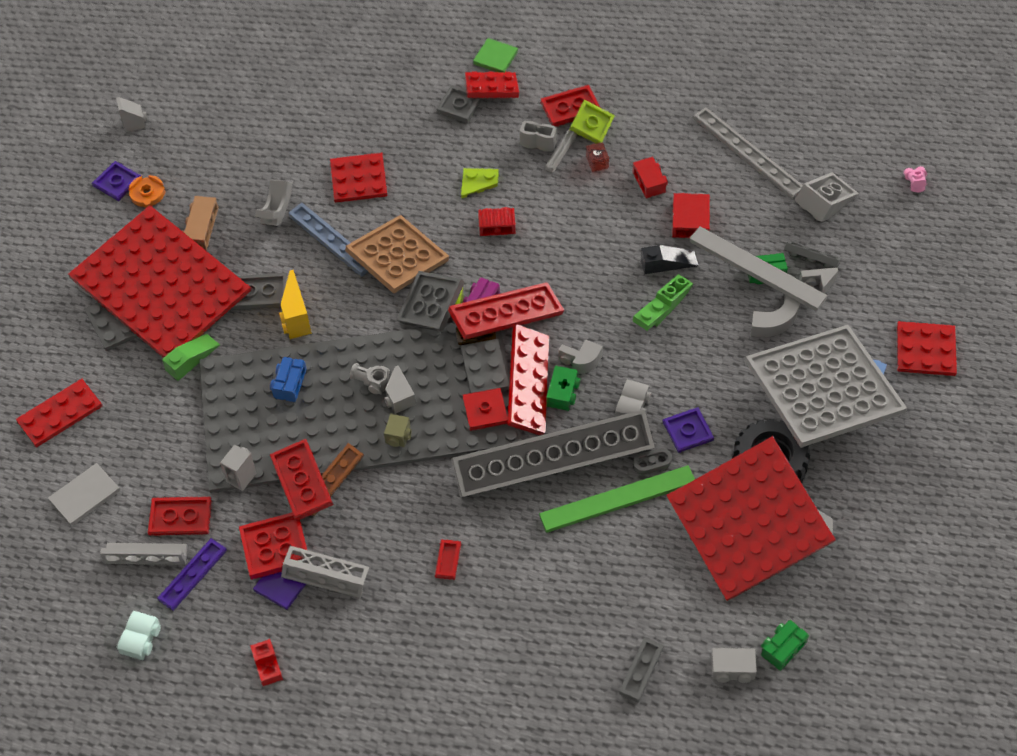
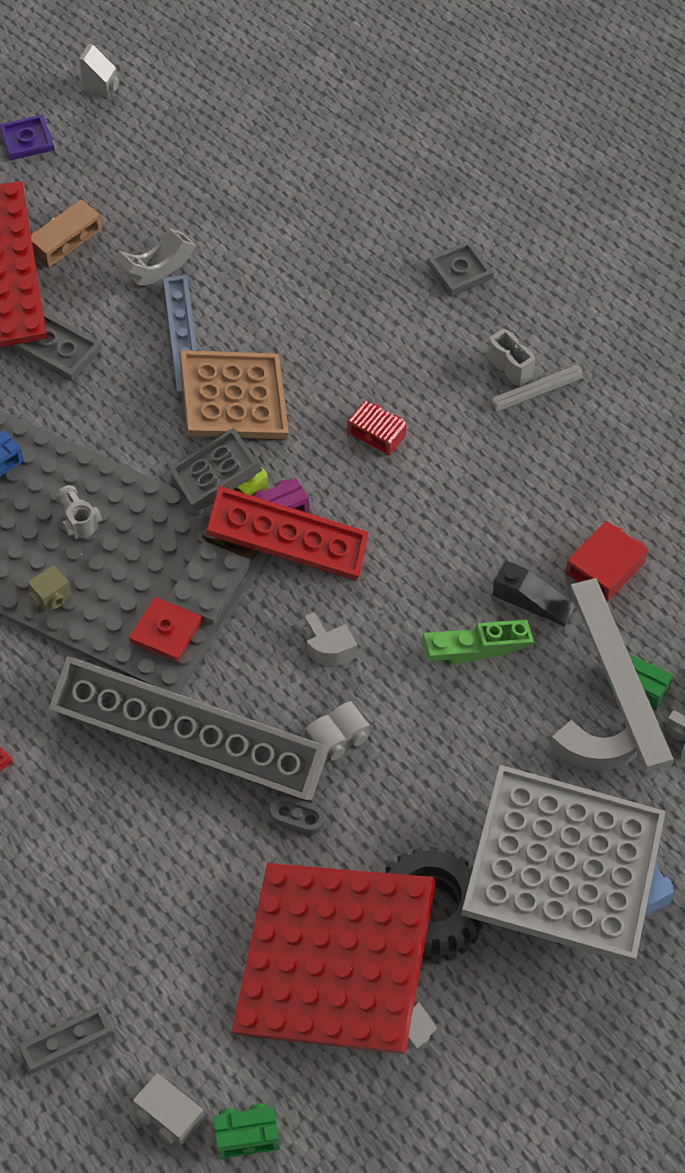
camera: 35 degrees right, 0 degrees up
(142, 199) = (46, 176): orange plate -> none
(293, 314) = (68, 384): yellow slope -> none
(358, 177) = (275, 285): red plate -> none
(398, 392) = (90, 547): light grey slope -> none
(478, 180) = (402, 367): lime wing -> none
(491, 85) = (515, 267): red plate -> none
(495, 55) = (554, 237): bright green tile -> none
(528, 380) = (243, 628): plate -> none
(559, 397) = (273, 663): green brick -> none
(564, 106) = (586, 346): red plate -> none
(592, 122) = (591, 379): lime plate -> none
(597, 157) = (560, 423): clear red brick -> none
(615, 499) = (219, 829): bright green tile -> none
(649, 177) = (599, 485): red brick -> none
(688, 430) = (373, 808): dark purple tile -> none

